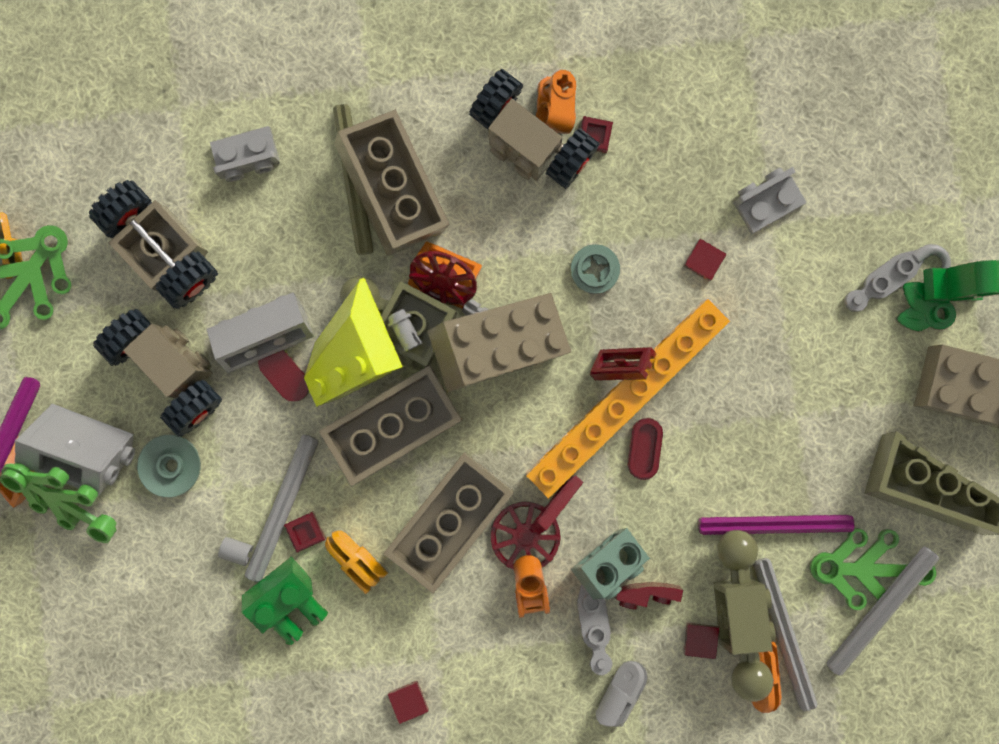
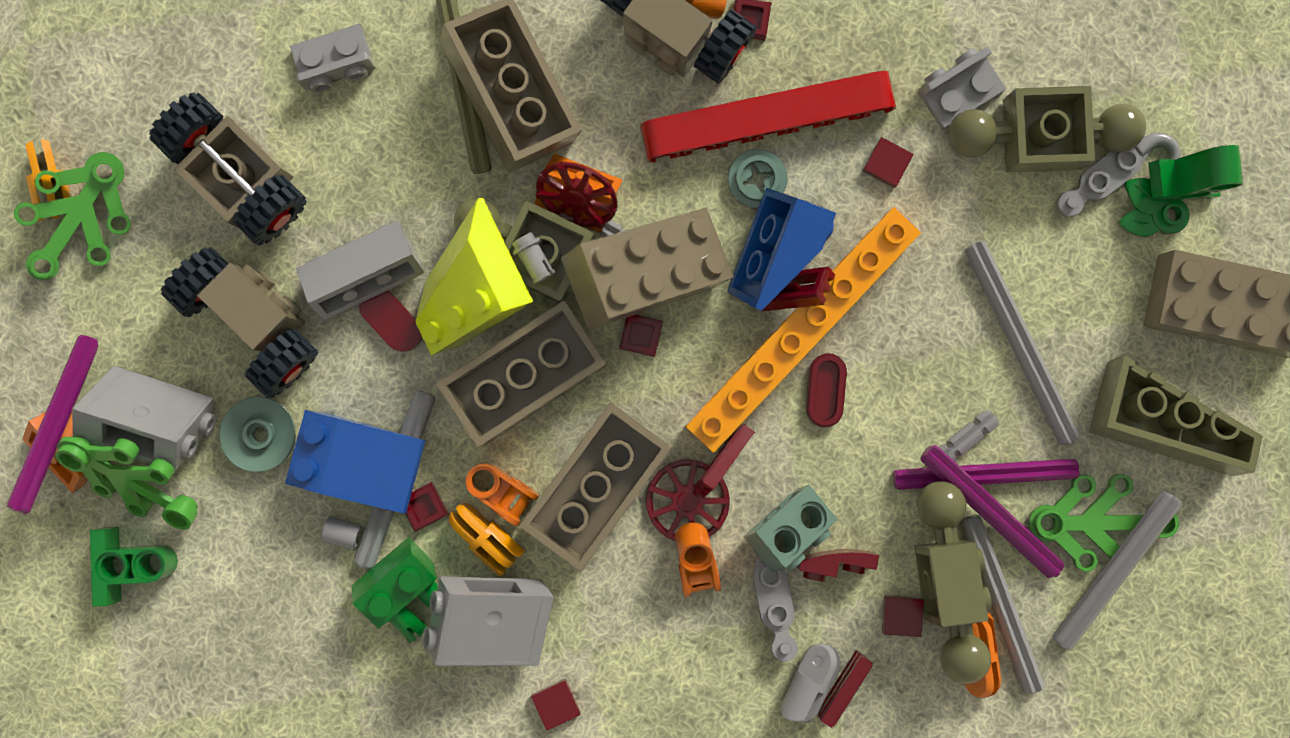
camera: 10 degrees left, 0 degrees up
(63, 570) = (135, 560): none -> green tile
(249, 492) = (355, 461): none -> blue slope
(353, 632) = (487, 621): none -> light grey piece
(370, 524) = (502, 493): none -> orange piece
(492, 396) = (641, 335): none -> dark red tile
(605, 216) = (767, 114): none -> red beam
(610, 328) = (778, 246): none -> blue slope
(650, 700) = (844, 689): none -> dark red tile
(760, 494) = (970, 434): none -> light grey axle
(780, 557) = (993, 512): none -> magenta axle
(811, 416) = (1022, 343): none -> light grey axle
(840, 238) = (1048, 129): none -> olive brick

